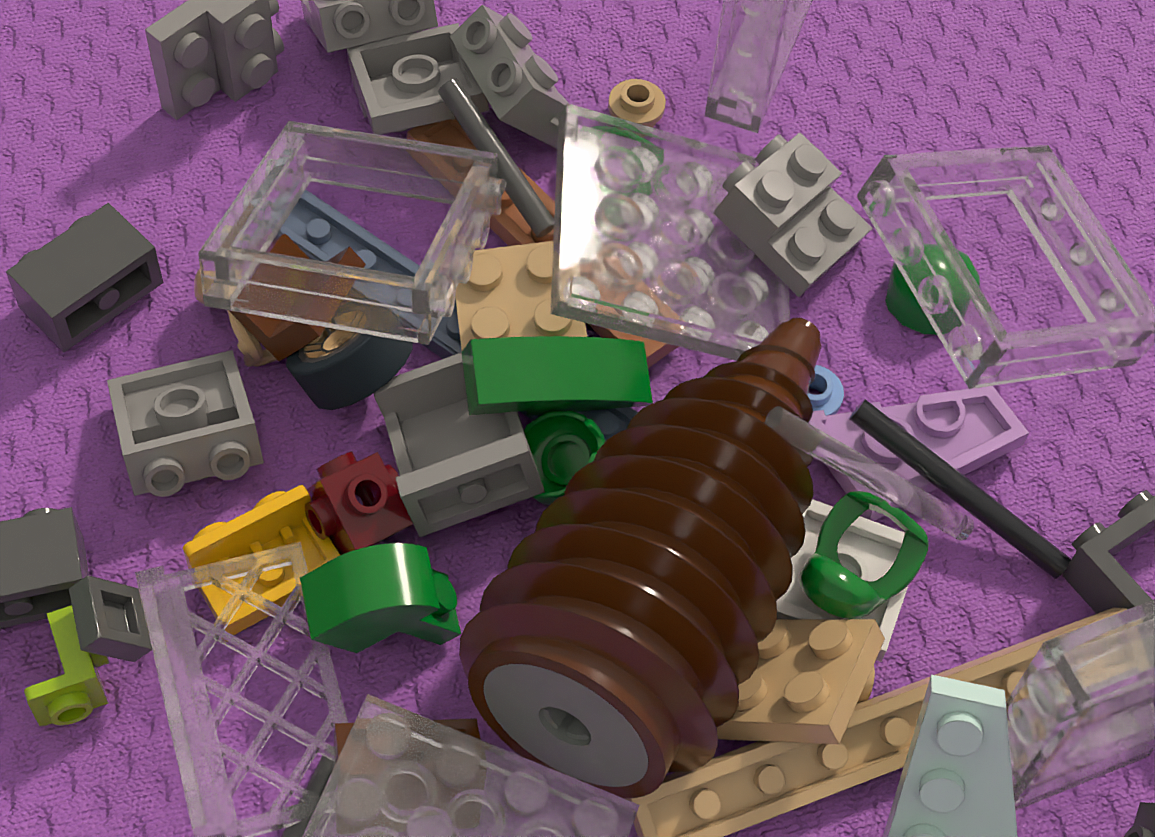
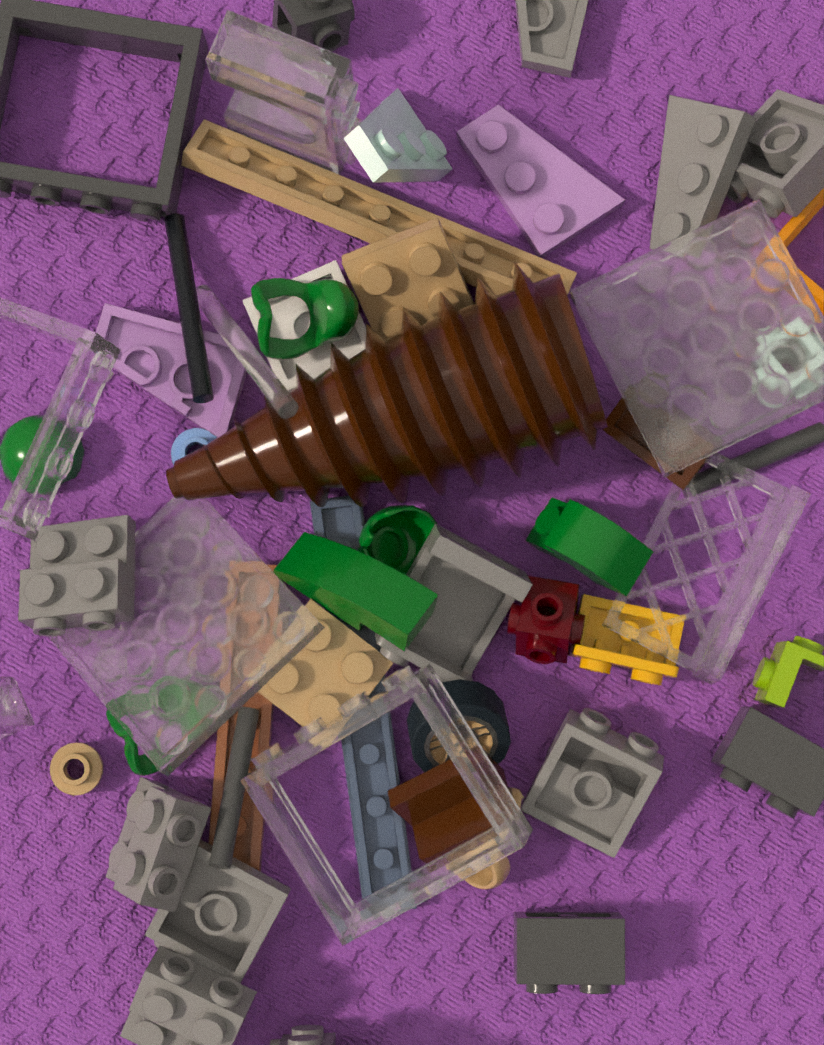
camera: 130 degrees left, 25 degrees up
(109, 619) = (756, 666): dark grey plate -> none

